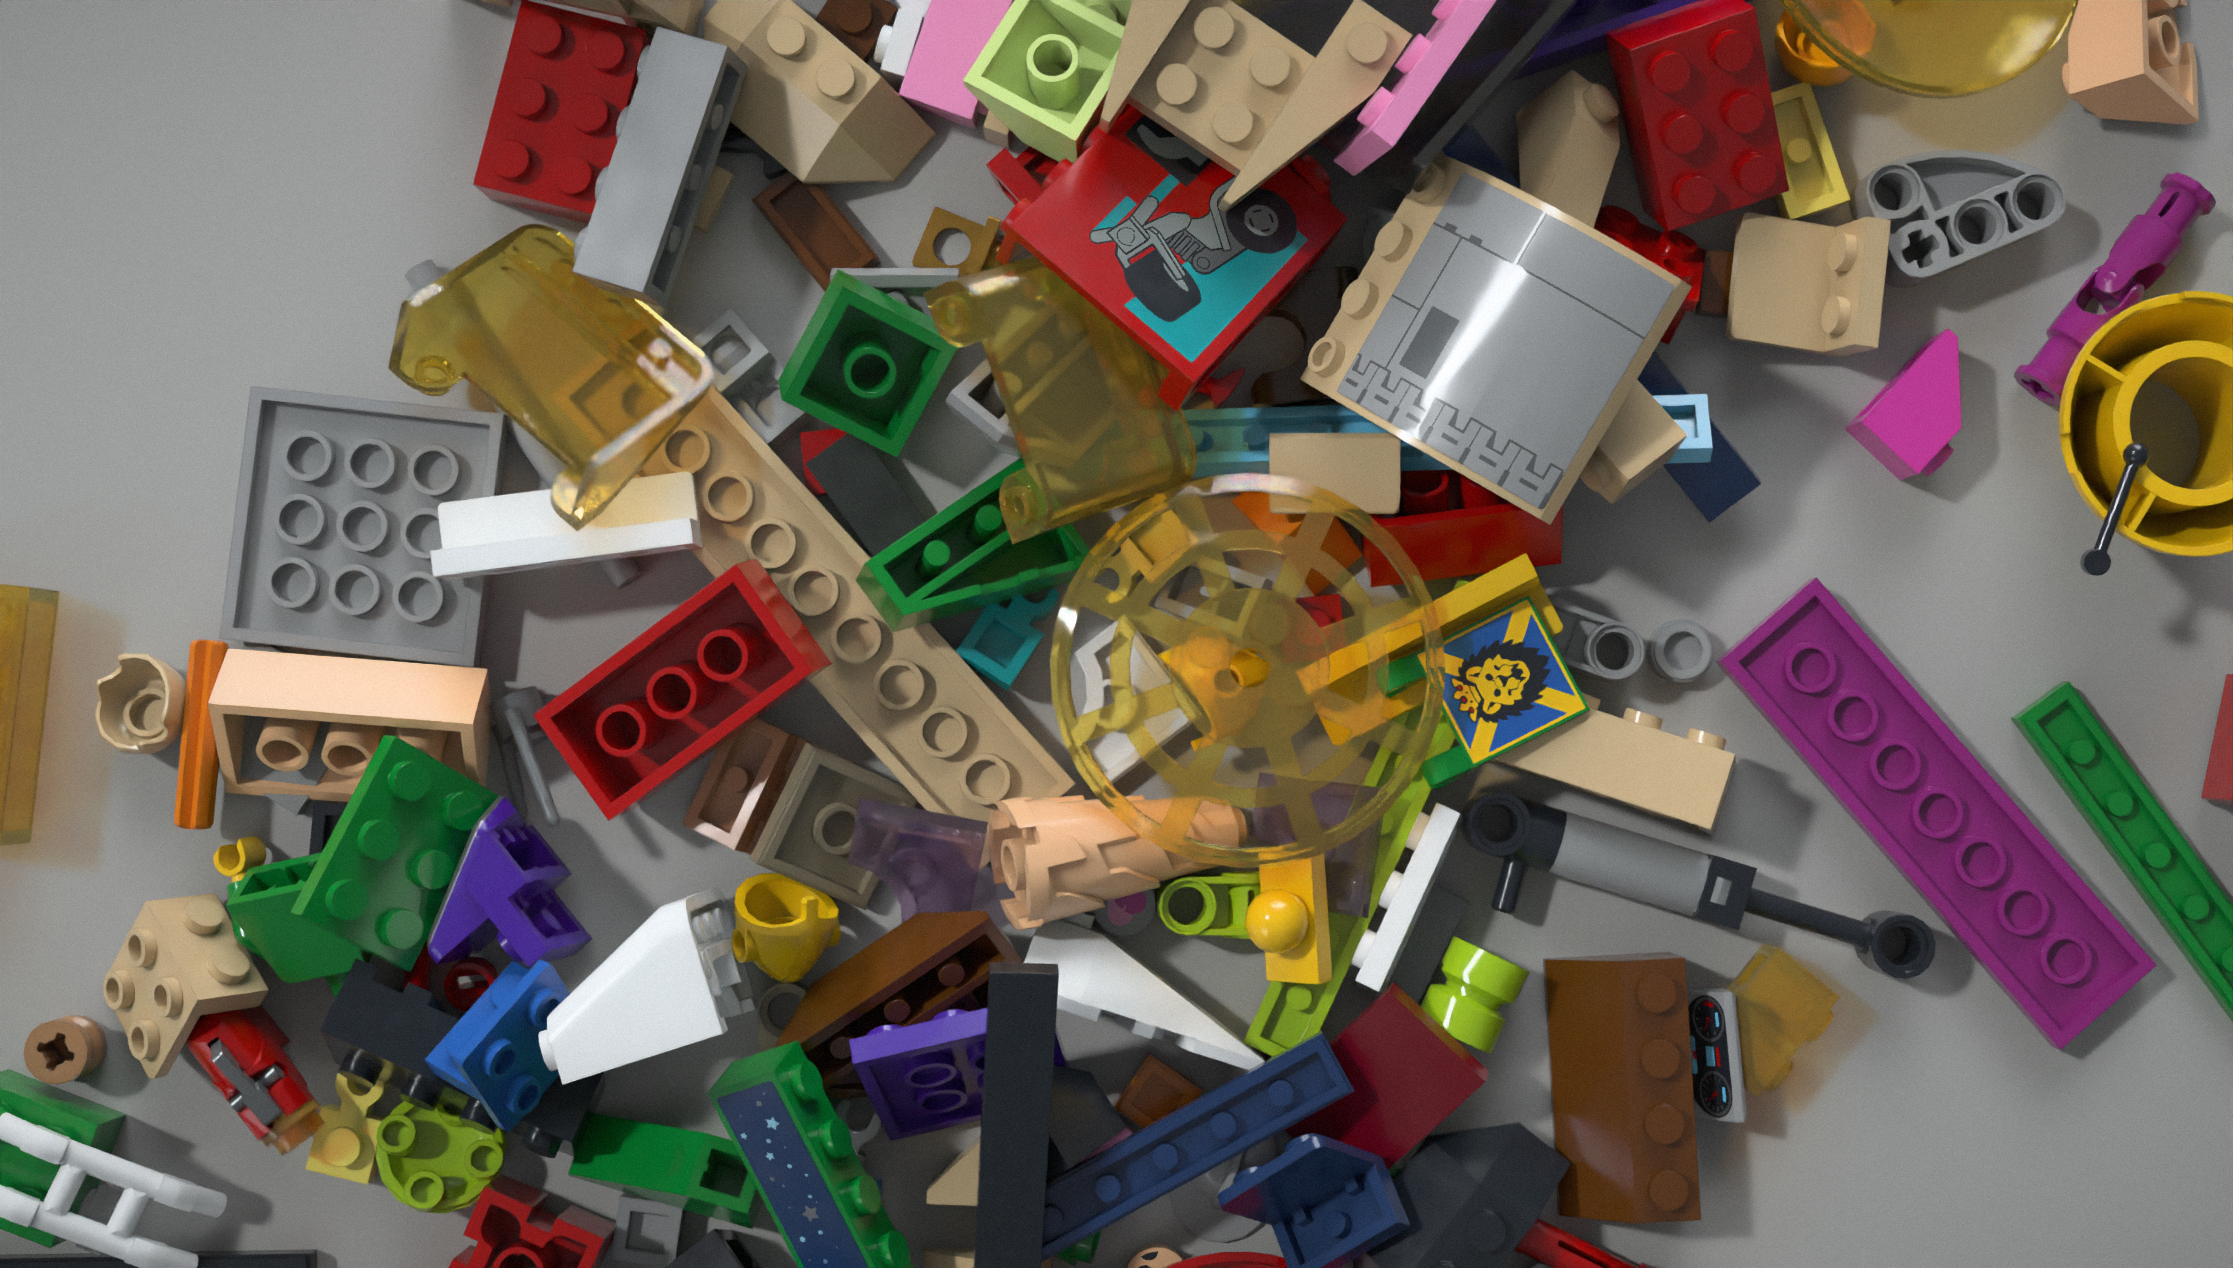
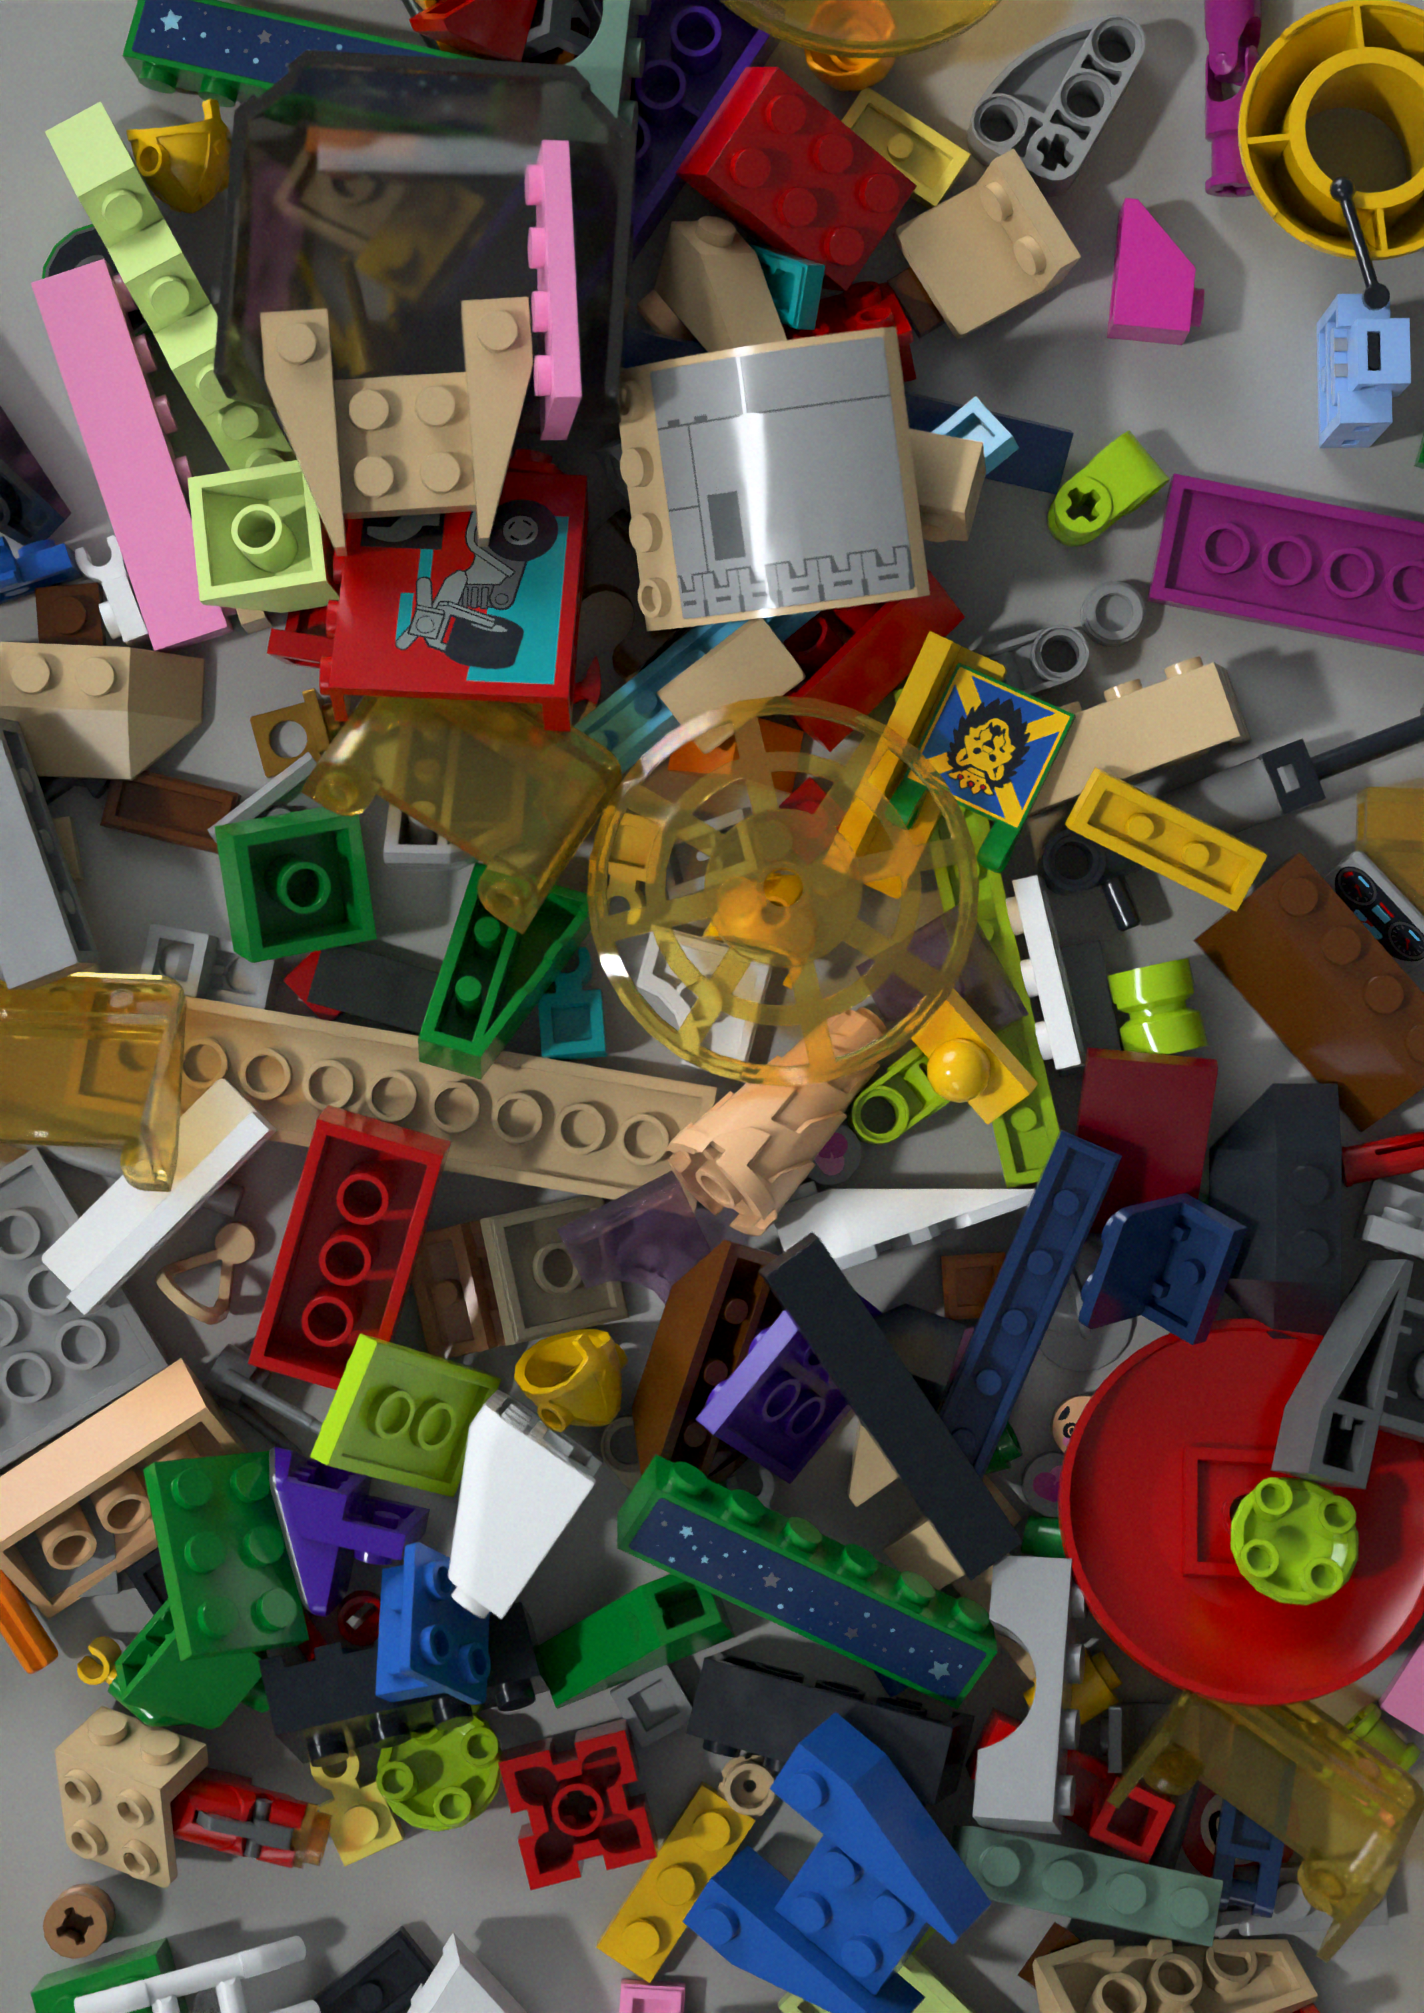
camera: 35 degrees left, 0 degrees up
(599, 611) = (234, 1245): none -> tan piece
(622, 851) = (403, 1416): none -> lime plate
(1504, 140) = (662, 317): none -> light nougat tile
(1585, 864) = (1165, 839): none -> yellow plate
(1629, 194) = (793, 284): none -> teal plate
(1756, 549) = (1111, 486): none -> lime piece
(2030, 609) = (1359, 370): none -> light blue piece

